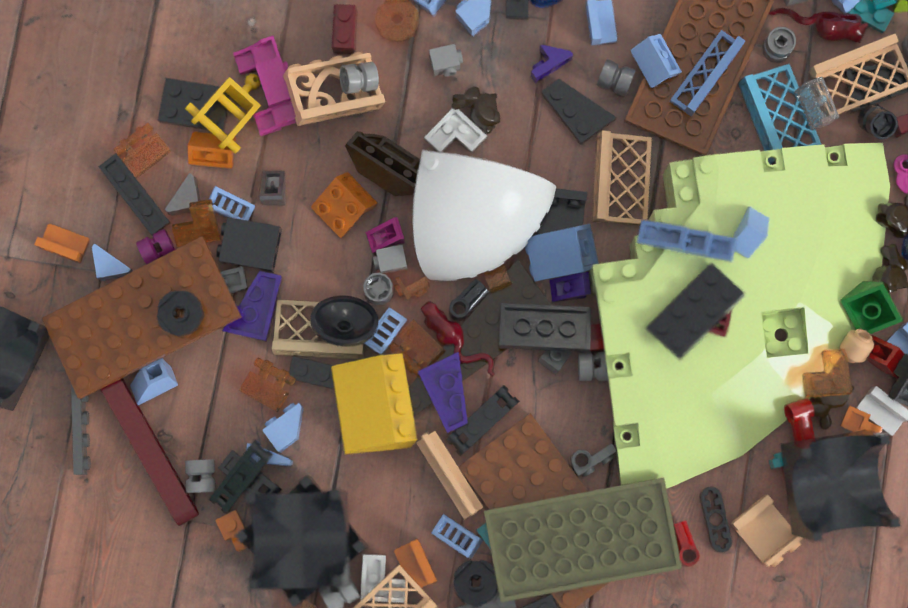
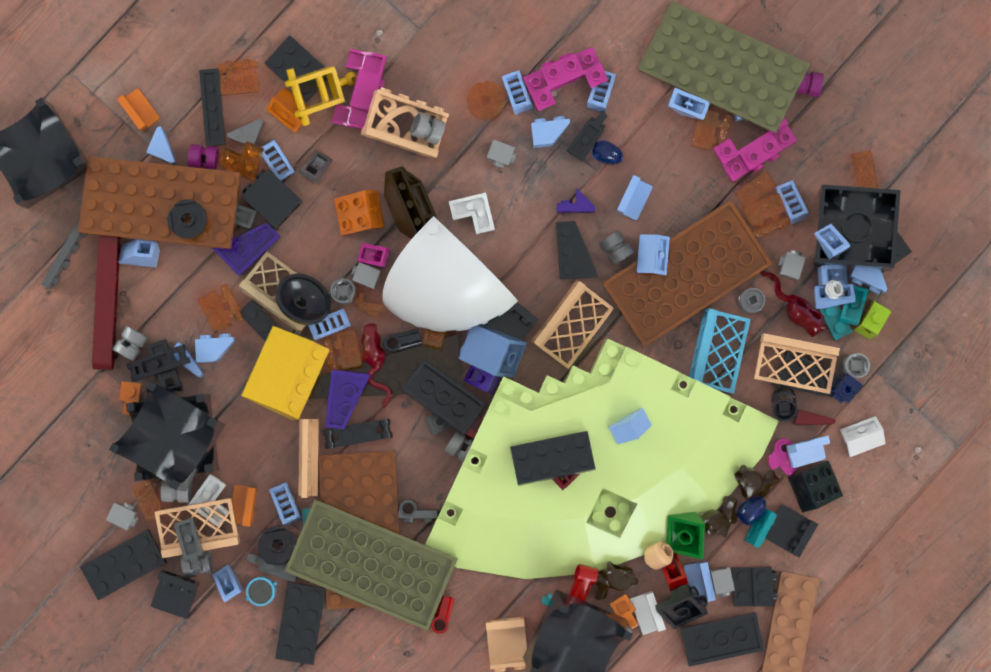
camera: 25 degrees right, 5 degrees up
(344, 29) = (442, 83): dark red brick -> none
(482, 108) = (504, 207): dark brown animal -> none
(687, 240) = (580, 404): medium blue slope -> none
(714, 537) = (477, 626): black beam -> none
(715, 74) = (688, 293): medium blue fence -> none
(817, 103) = (748, 362): clear brick -> none
(834, 379) = (623, 569): clear orange plate -> none

